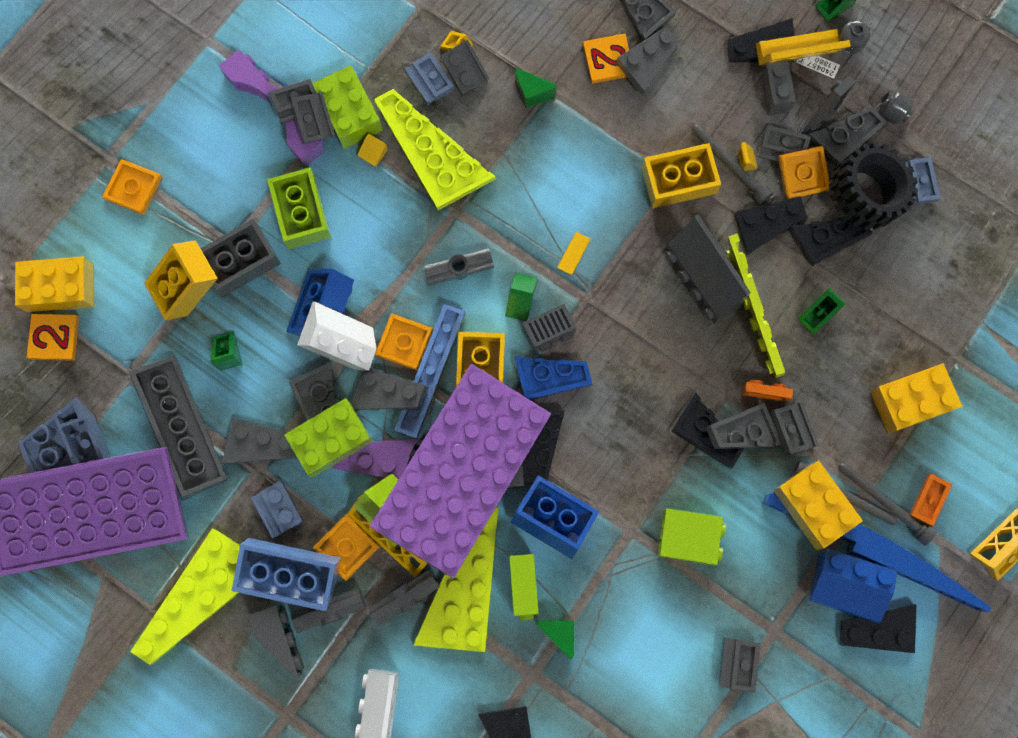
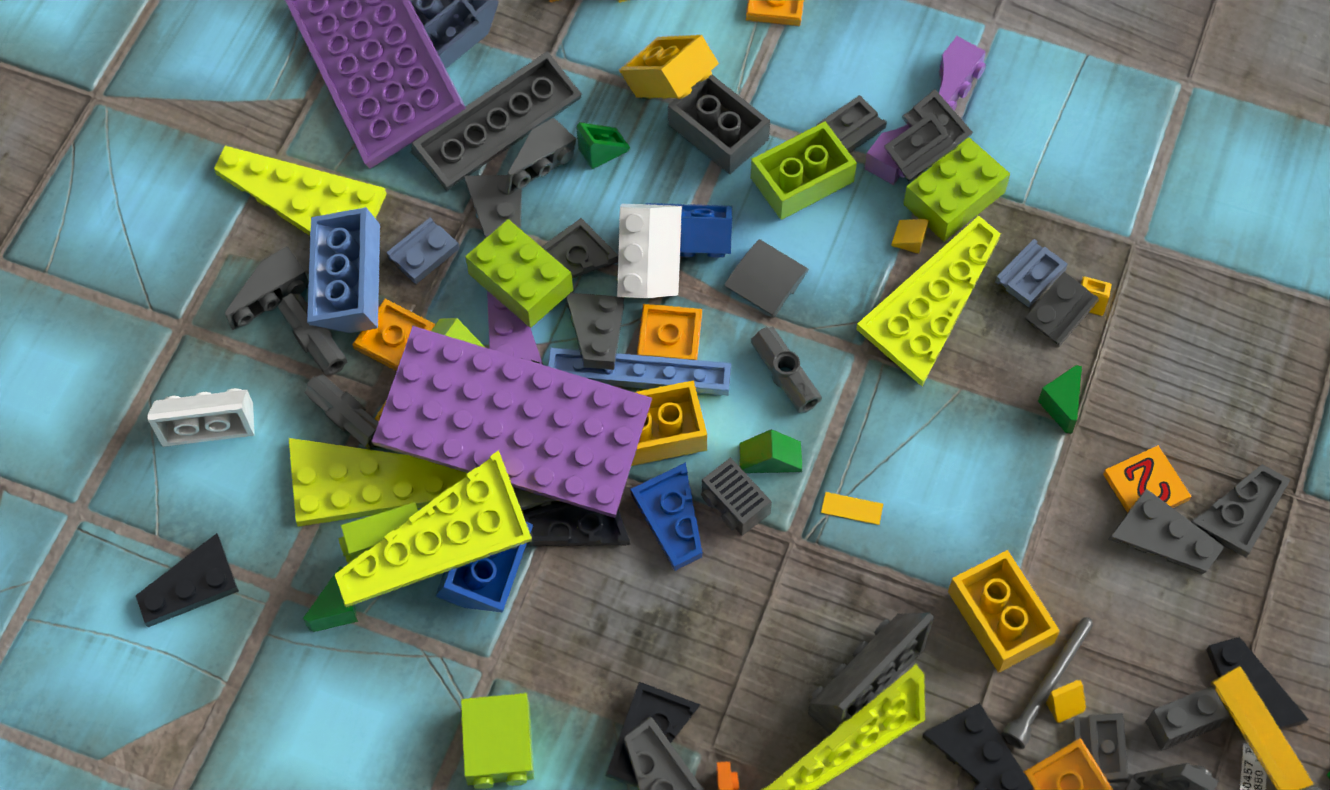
camera: 75 degrees right, 15 degrees down
(219, 396) = (542, 151): none -> dark grey slope
(266, 162) = (855, 123): none -> dark grey plate
(378, 260) = (766, 277): none -> dark grey slope
(540, 530) = (452, 530): none -> neon yellow wing

